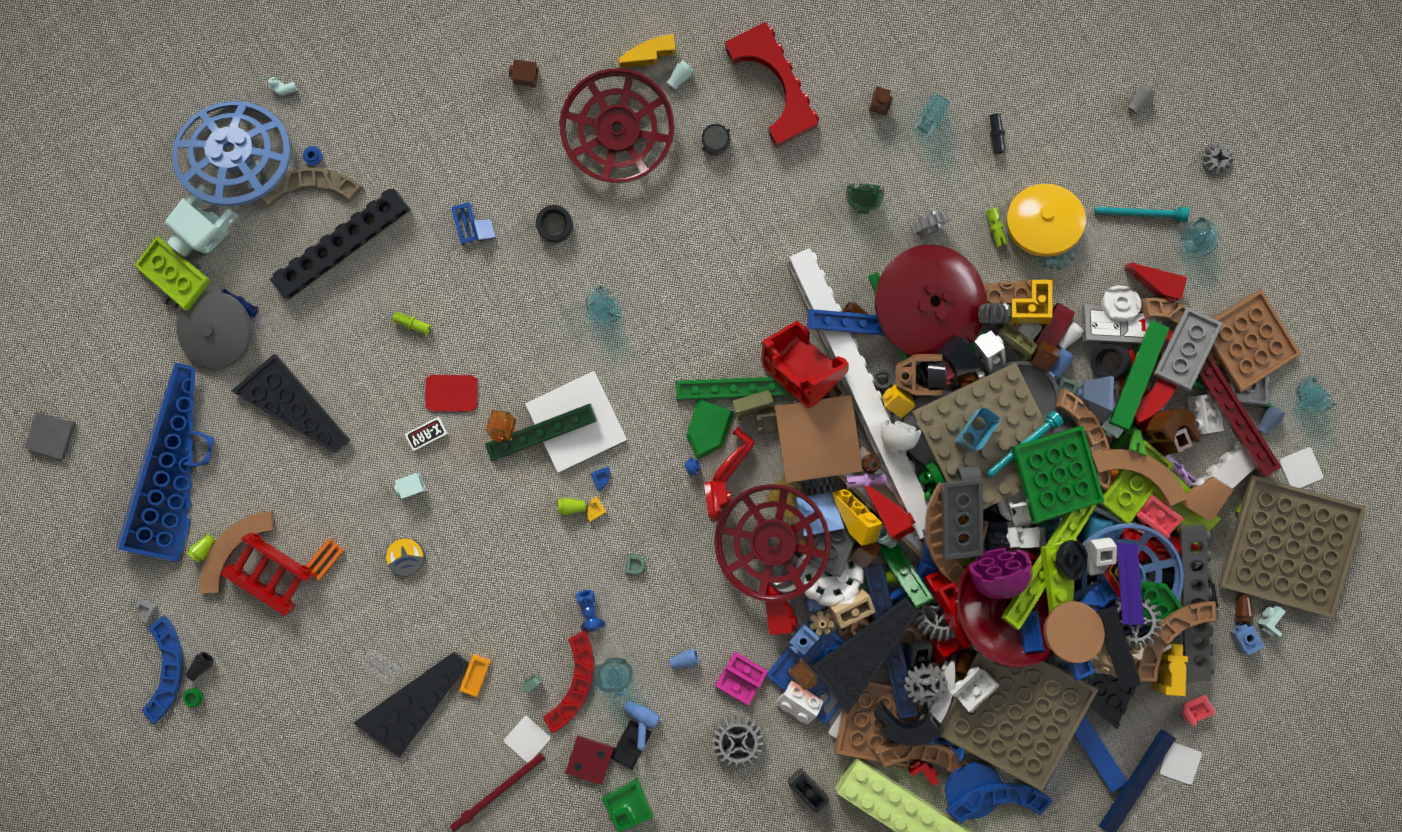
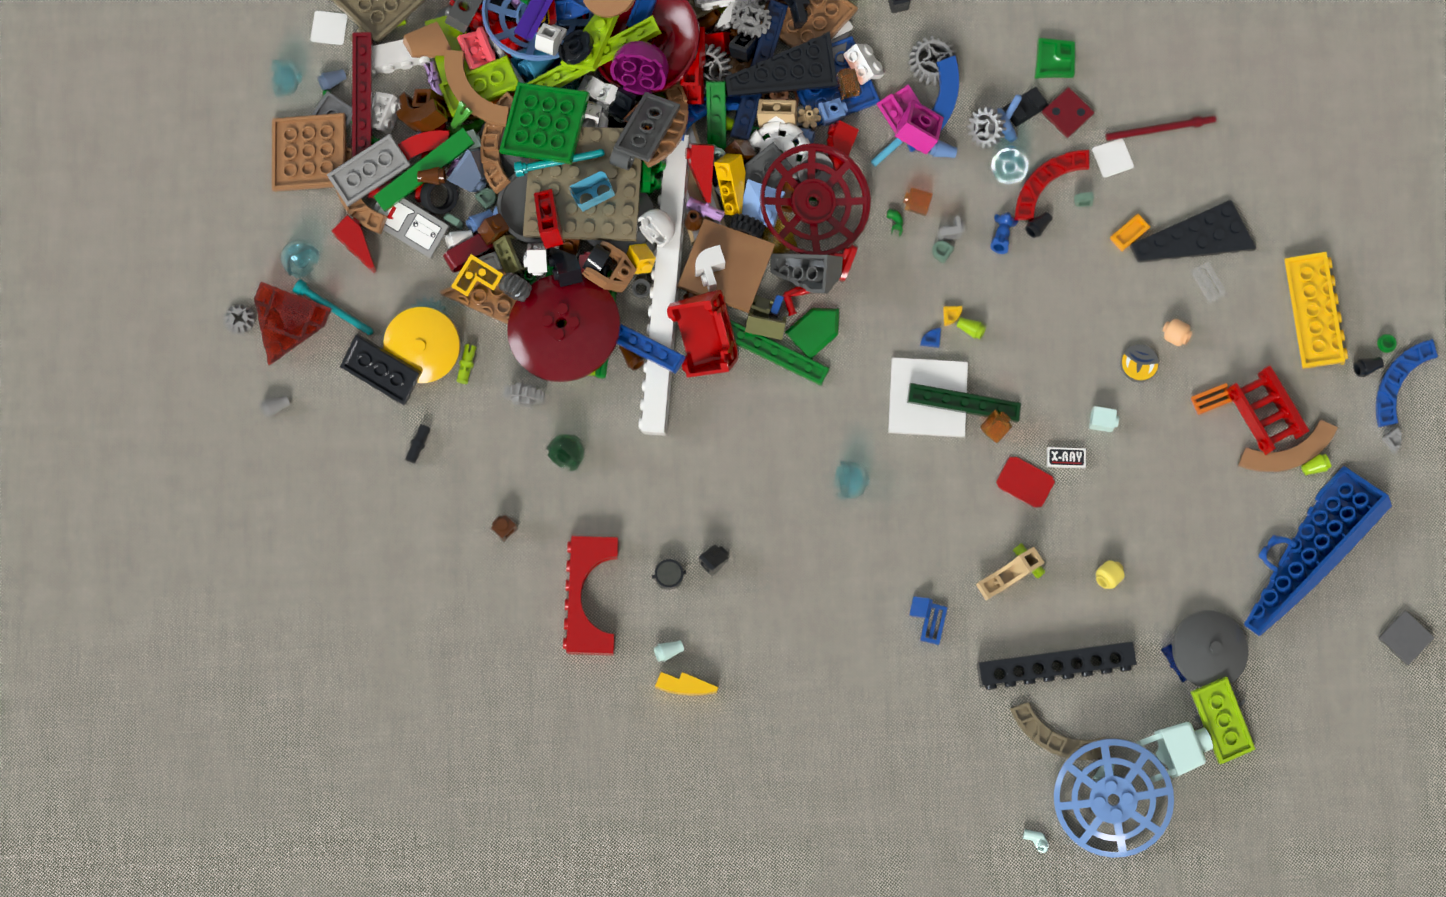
camera: 155 degrees left, 10 degrees down
(270, 692) = (1315, 310): none -> yellow bracket
(284, 397) = (1175, 553): black wing -> none
(317, 158) = (1034, 760): blue plate -> none
(334, 348) = (1110, 574): none -> light yellow head
(384, 602) = (1177, 332): none -> light nougat head
(418, 304) = (1010, 574): none -> tan arch
(524, 72) = (808, 729): reddish brown brick -> none
(554, 209) = (857, 564): black tyre -> none
(560, 636) = (1038, 225): none -> black cone
(616, 114) = (751, 619): dark red dish -> none
(637, 583) = (949, 233): none -> light grey bracket
(653, 700) = (986, 127): none -> light grey gear
(680, 597) = (917, 201): none -> clear orange brick
(684, 170) = (713, 559): none -> black slope
(690, 572) = (897, 218): none -> green arm
(692, 466) = (847, 303): blue plate -> none
(705, 701) = (948, 90): none -> blue tile
(715, 667) = (919, 127): none -> dark pink slope
(731, 639) = (883, 154): none -> medium azure bar
(738, 473) = (808, 271): none -> dark grey wedge
(753, 428) = (777, 305): none -> blue tile
(837, 427) = (707, 263): none -> white brick
(932, 113) = (464, 491): clear light blue torso -> none
(1002, 384) = (548, 219): none -> red slope
(1068, 179) = (380, 369): none -> black tile
(1083, 349) = (456, 222): none -> sand green tile
(1121, 303) = (399, 241): white tile -> none
(1129, 370) = (433, 176): none -> reddish brown cone
(1178, 176) = (286, 319): none -> clear red wedge

